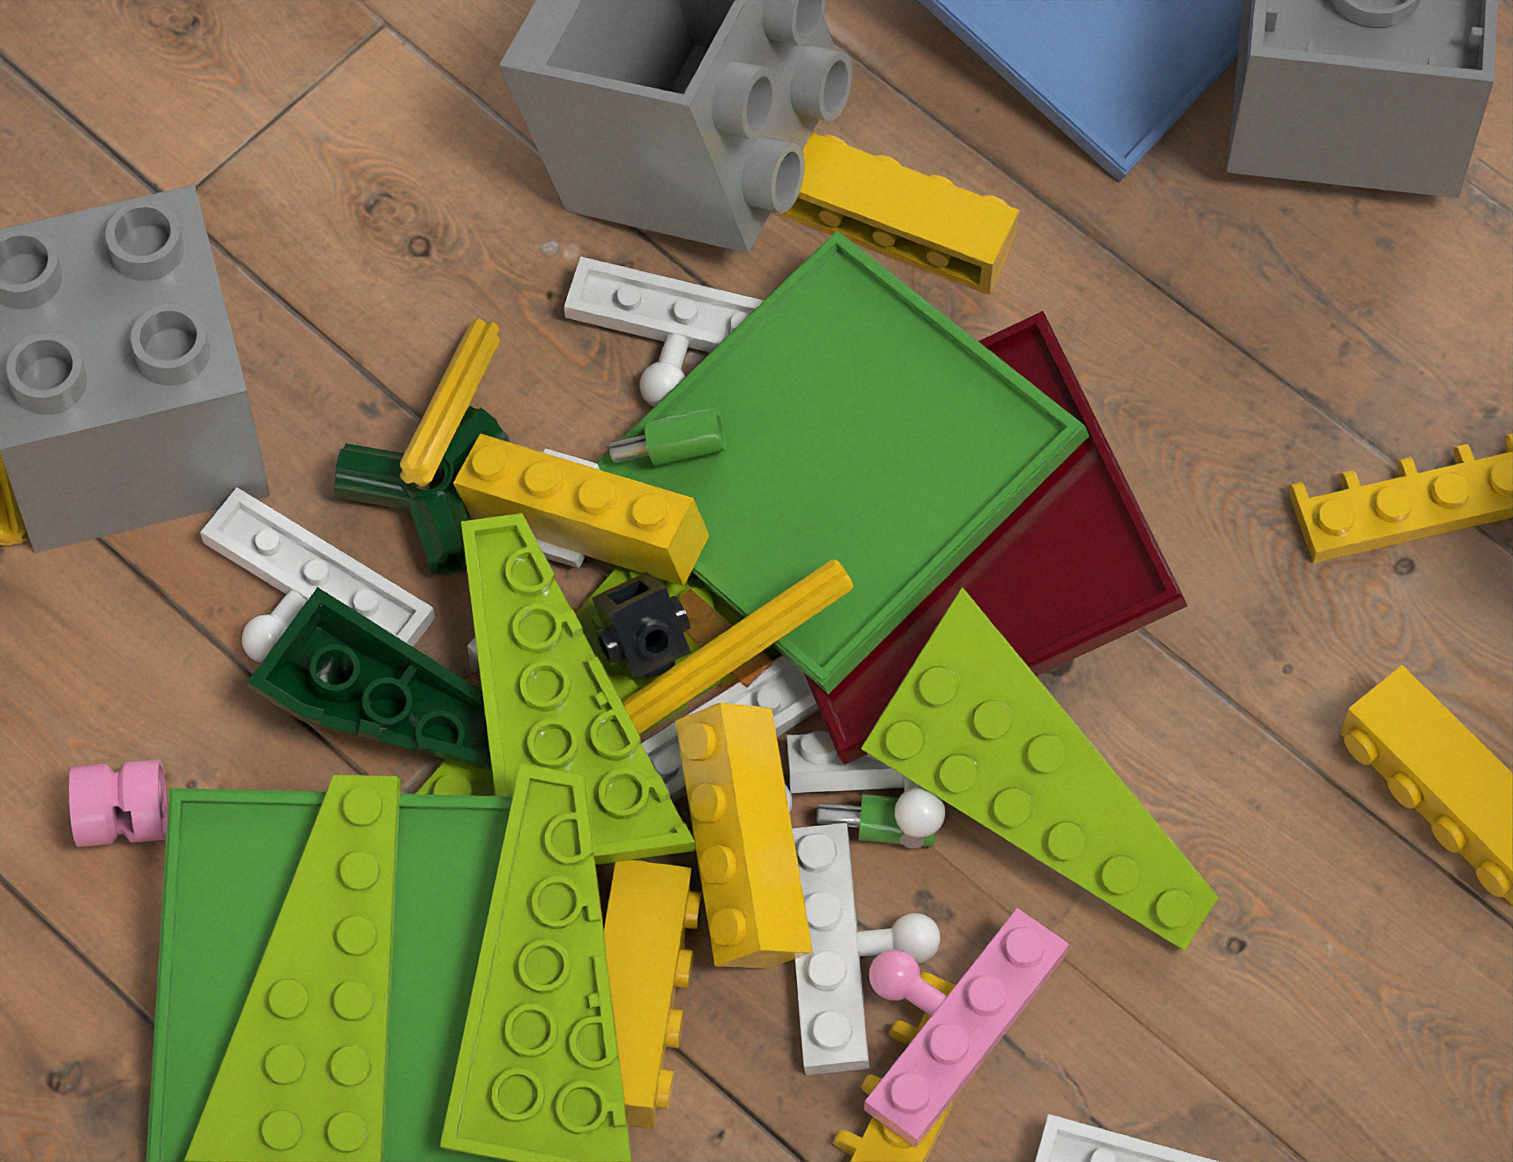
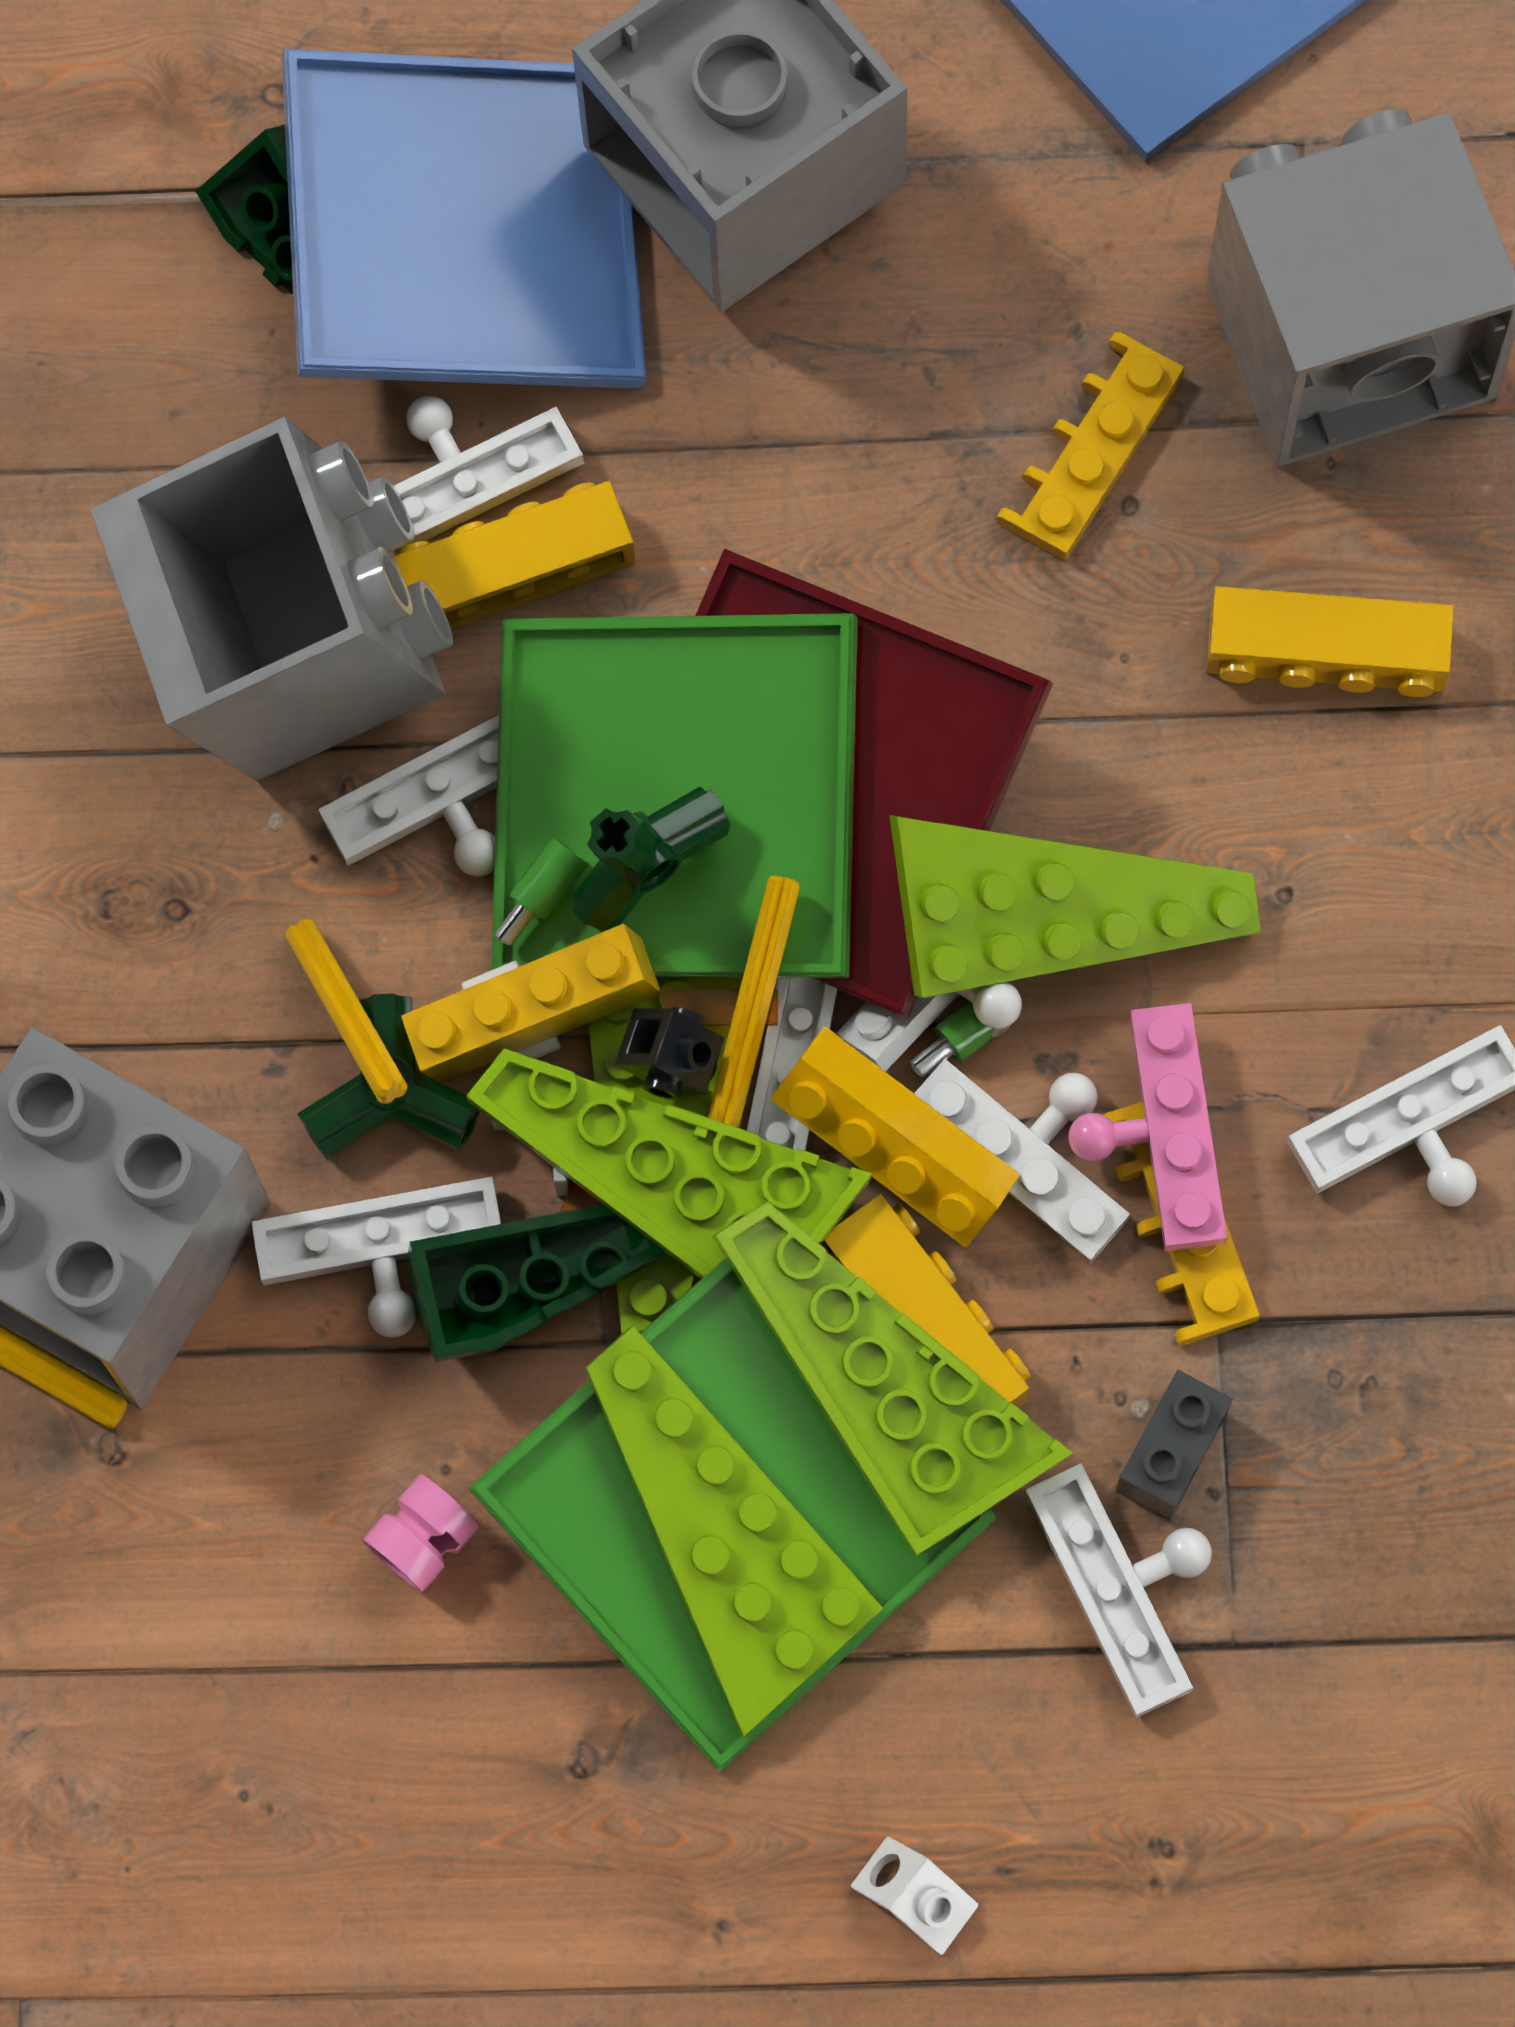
camera: 40 degrees left, 10 degrees up
(759, 459) = (643, 853): none -> dark green piece
(934, 138) = (484, 474): none -> white plate

